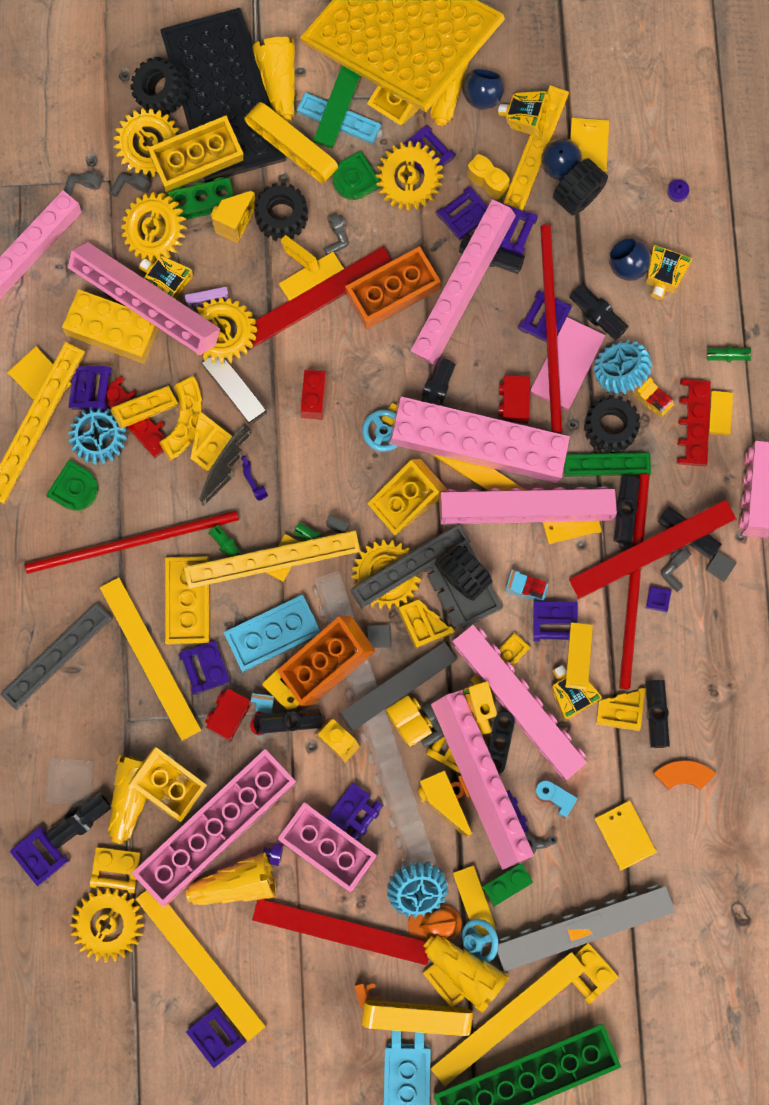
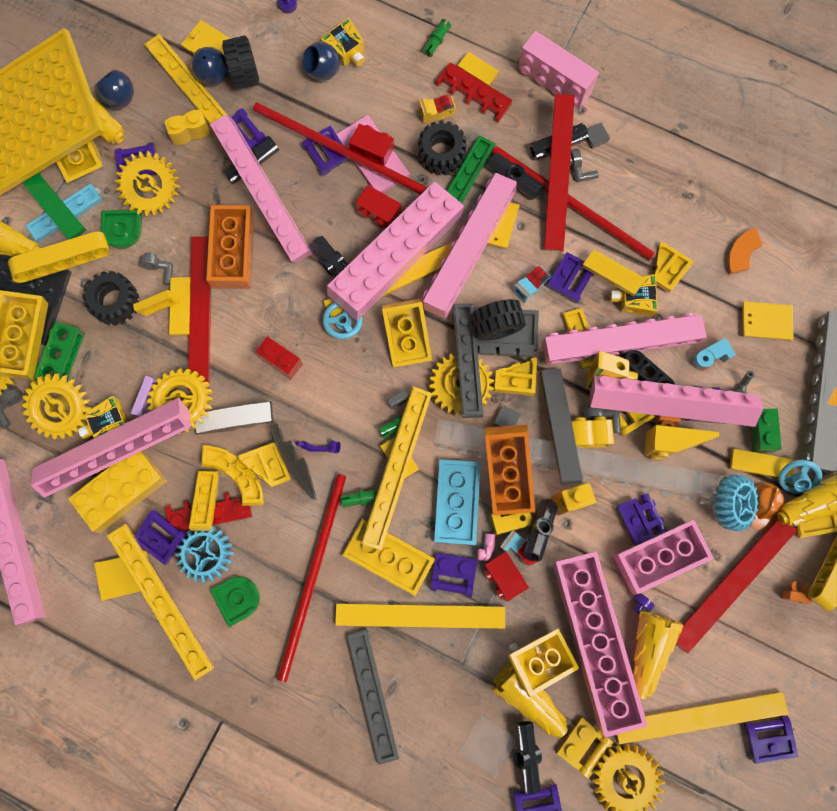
camera: 60 degrees left, 0 degrees up
(233, 215) = (89, 337): yellow slope -> none
(246, 686) = (489, 543): none -> bright pink arm
(466, 219) = (210, 161): dark purple plate -> none
(527, 112) = (154, 70): yellow torso -> none
(573, 356) = (372, 143): none -> red brick
(598, 312) = (346, 109): black piece -> none
(623, 367) = (402, 101): medium azure gear -> none
(657, 700) = (698, 248): black piece -> none
(658, 599) = (596, 193): dark purple tile -> none

